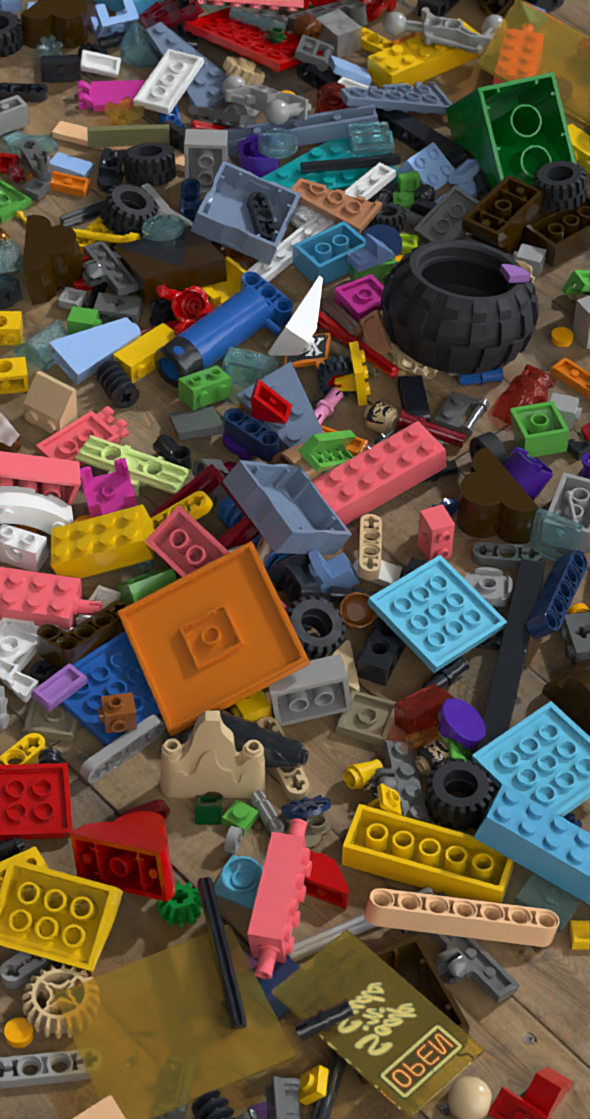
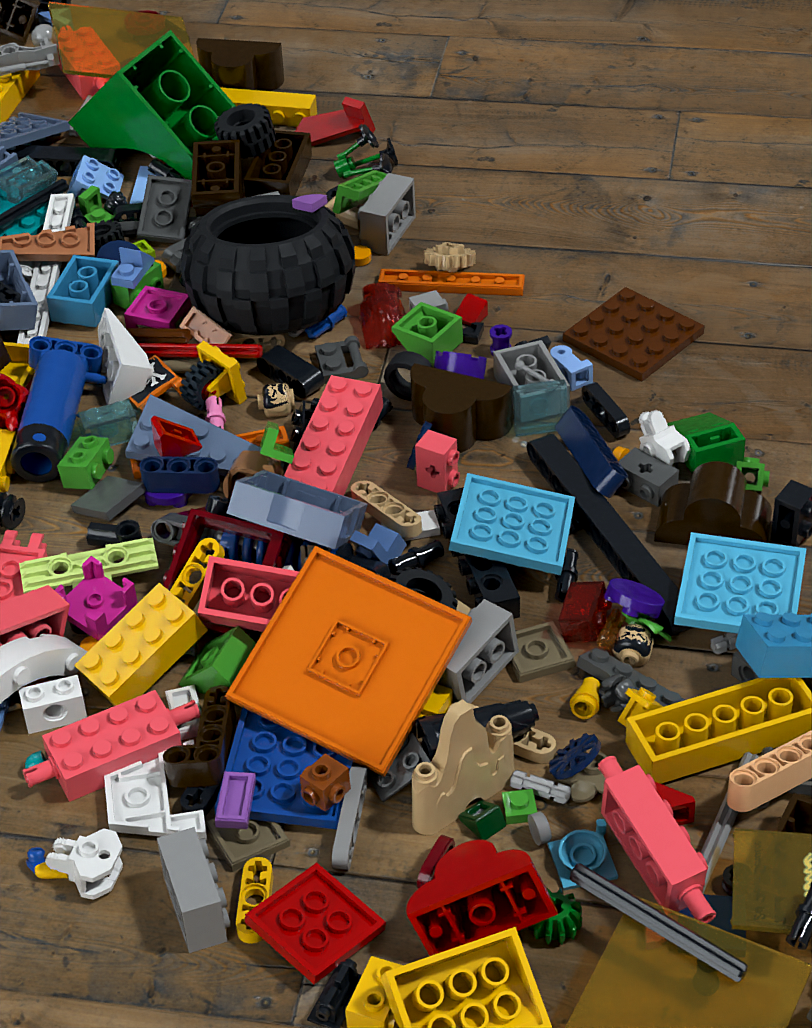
camera: 35 degrees left, 5 degrees down
(49, 756) = (289, 870): black bush -> none
(356, 611) = (439, 561): dark orange hair -> none
(438, 432) = (315, 387): dark red pin -> none
(463, 778) = (690, 659): black tyre -> none
(465, 171) = (132, 167): light blue tile -> none
(499, 548) = (491, 457): dark grey beam -> none
(500, 587) = (533, 476): light grey plate -> none

